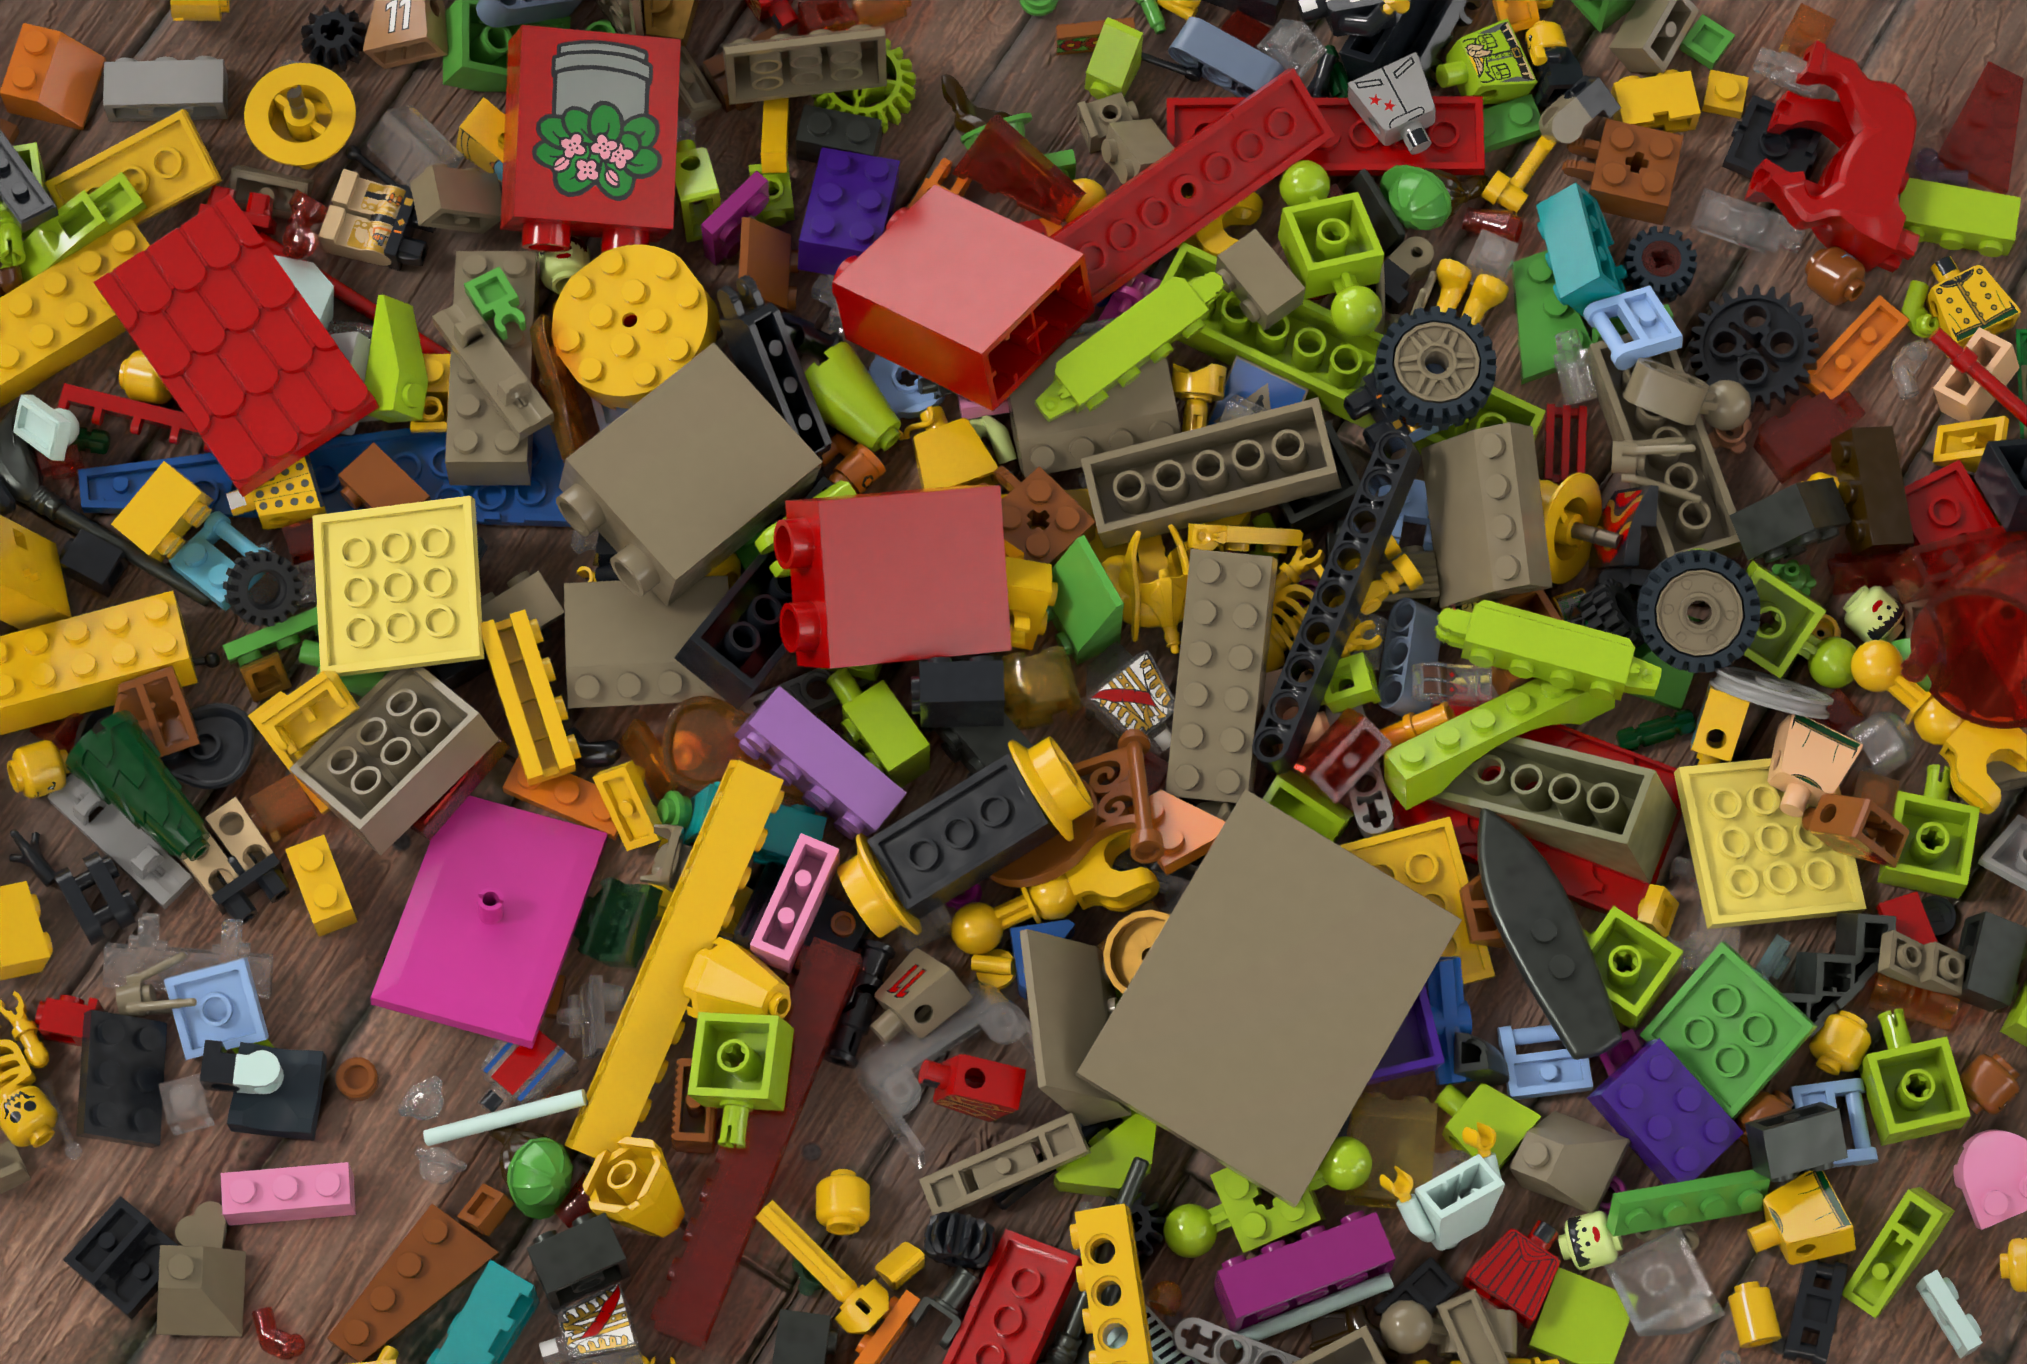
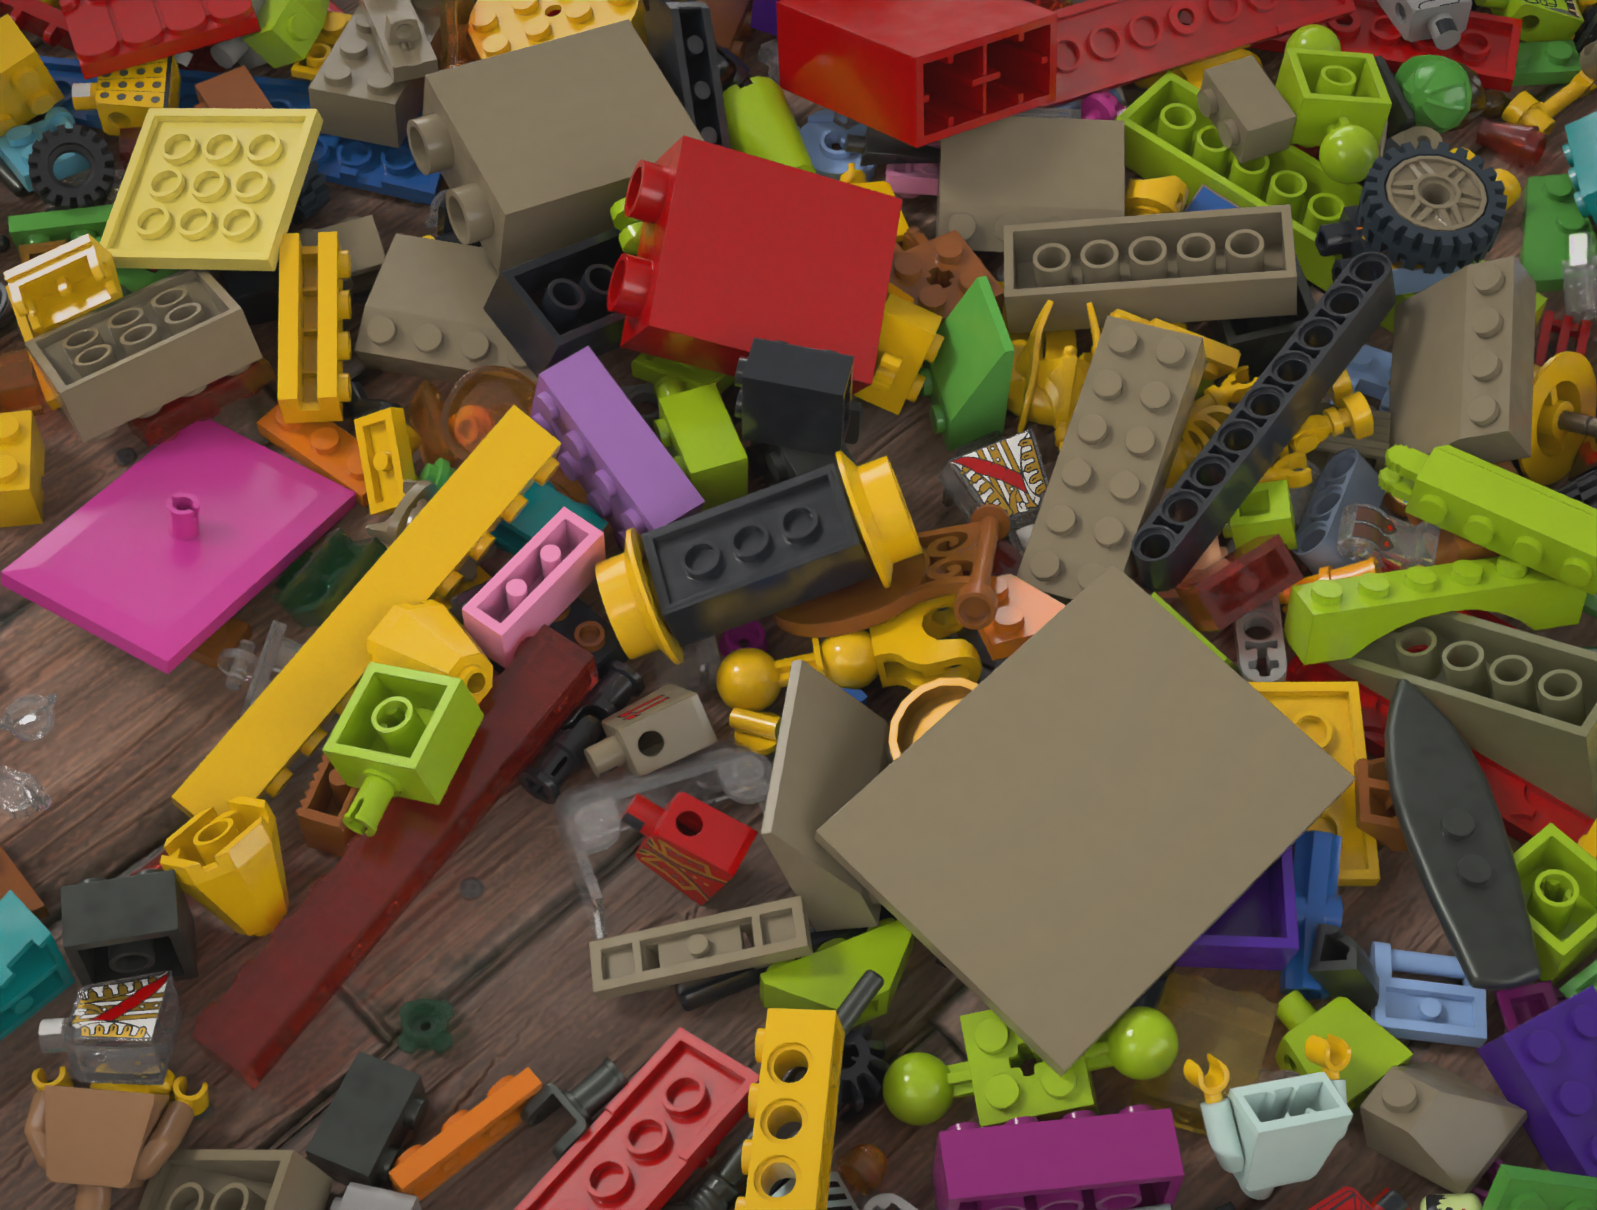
camera: 15 degrees right, 15 degrees down
(486, 1210) = (50, 854): dark orange plate -> none
(505, 1117) = (112, 751): light aqua bar -> none
(524, 1073) = (159, 713): torso -> none
(533, 1170) = (122, 820): bright green piece -> none
(827, 1272) = (437, 1025): yellow piece -> none
(843, 1202) = (485, 948): yellow head -> none
(901, 1265) = (537, 1045): yellow slope -> none
(959, 1240) = (616, 1025): black gear -> none
(999, 436) = (918, 213): yellowish green arm -> none
(1039, 687) = (901, 430): clear yellow brick -> none
(1129, 343) = (1086, 125): lime hinge -> none
(1492, 256) = (1511, 154): clear brick -> none

